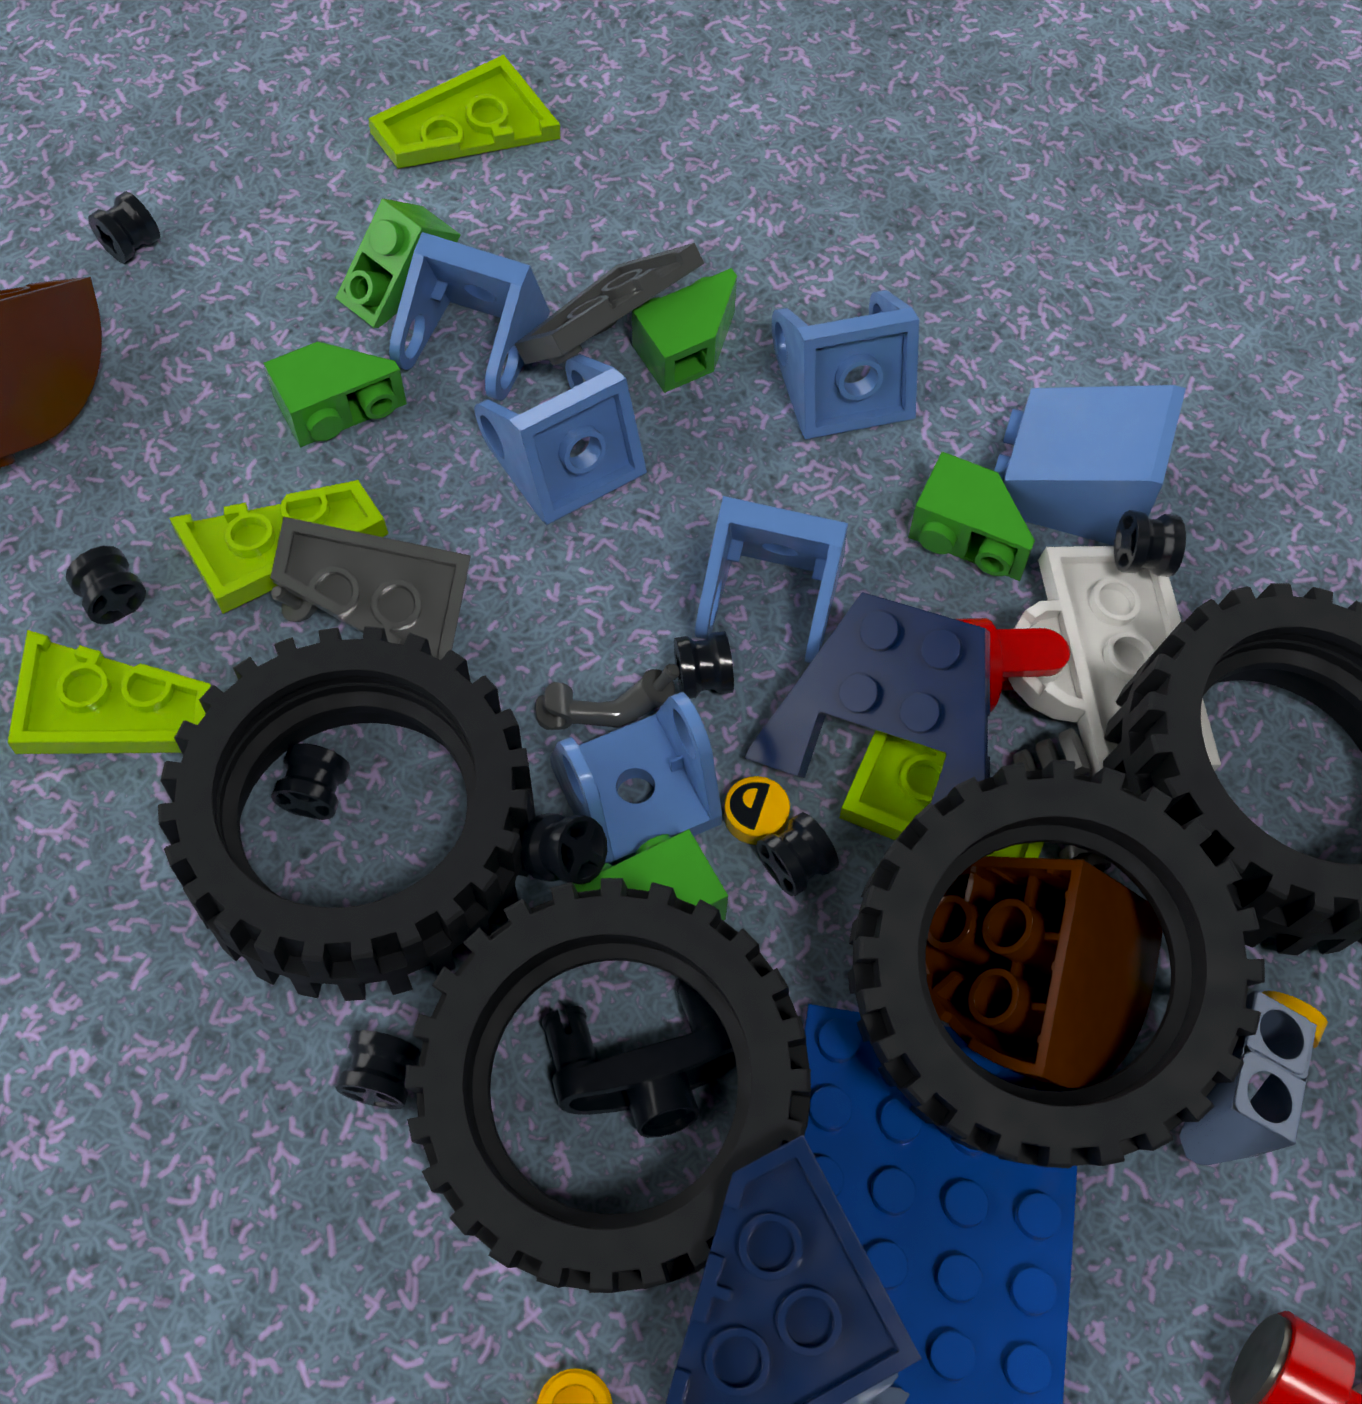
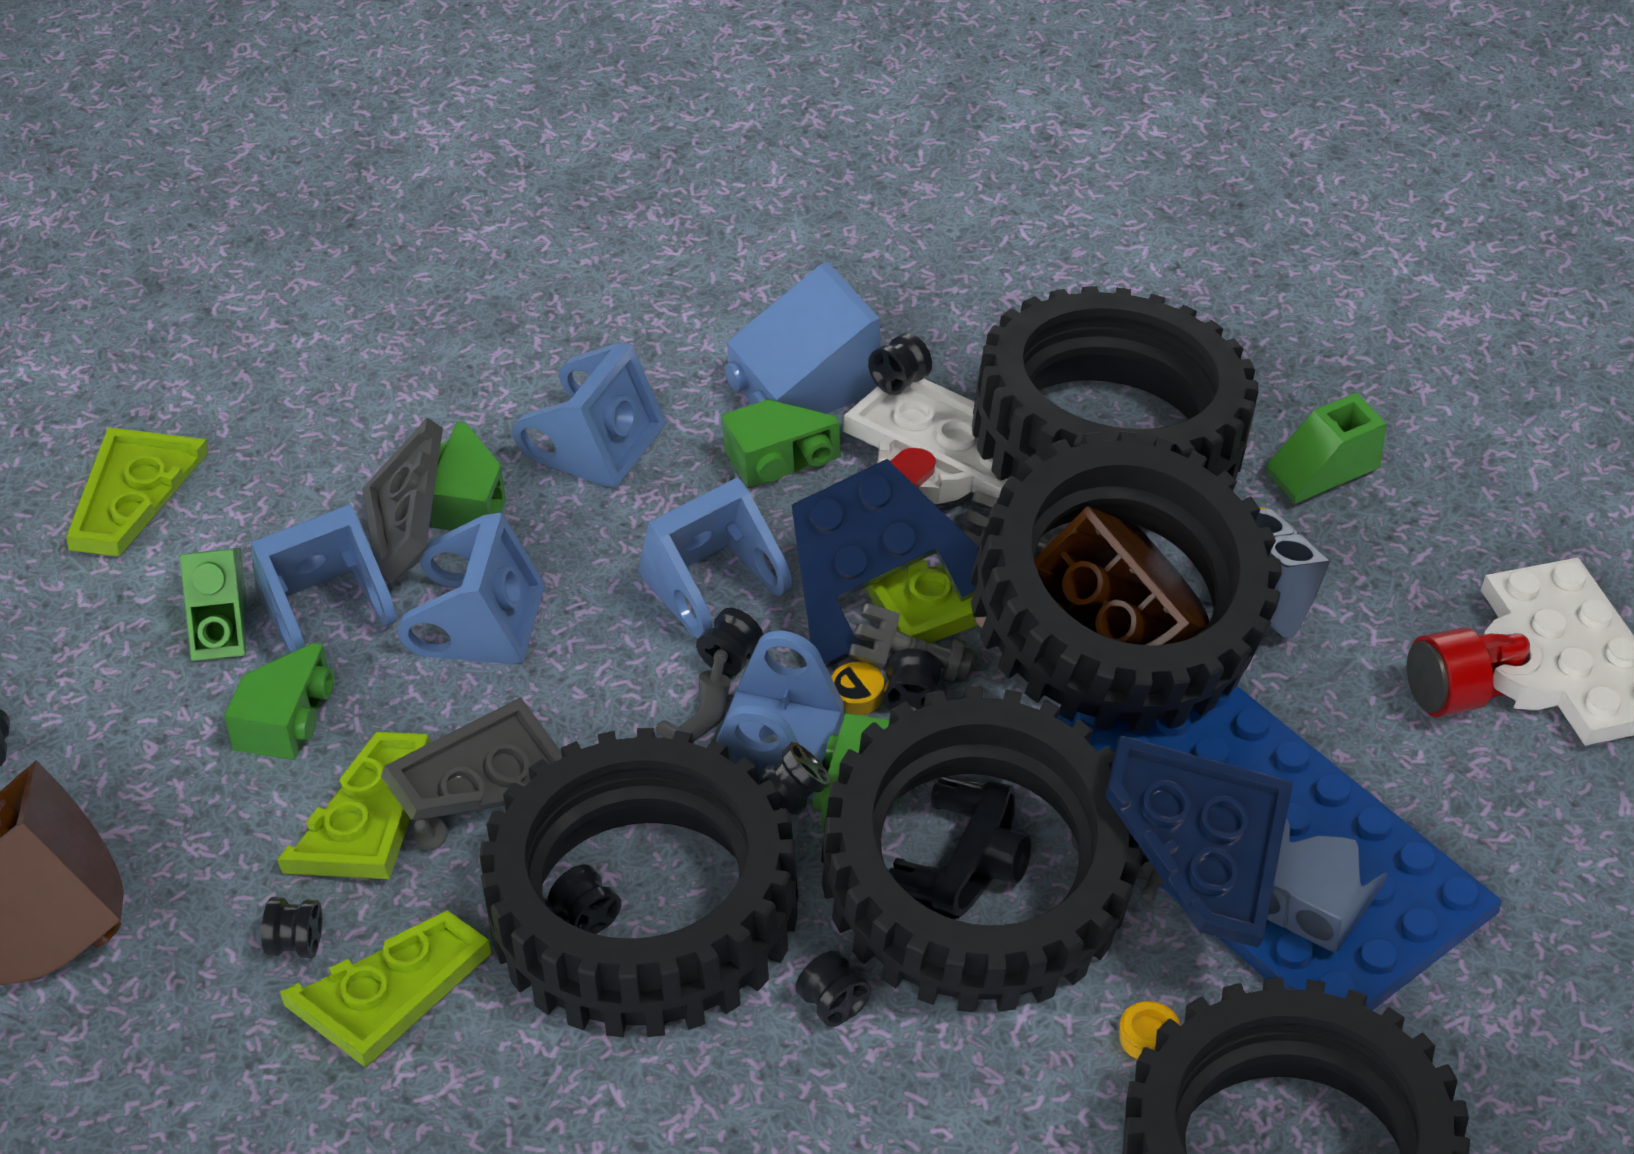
camera: 45 degrees left, 15 degrees down
(821, 795) = (953, 660): none -> dark grey hinge

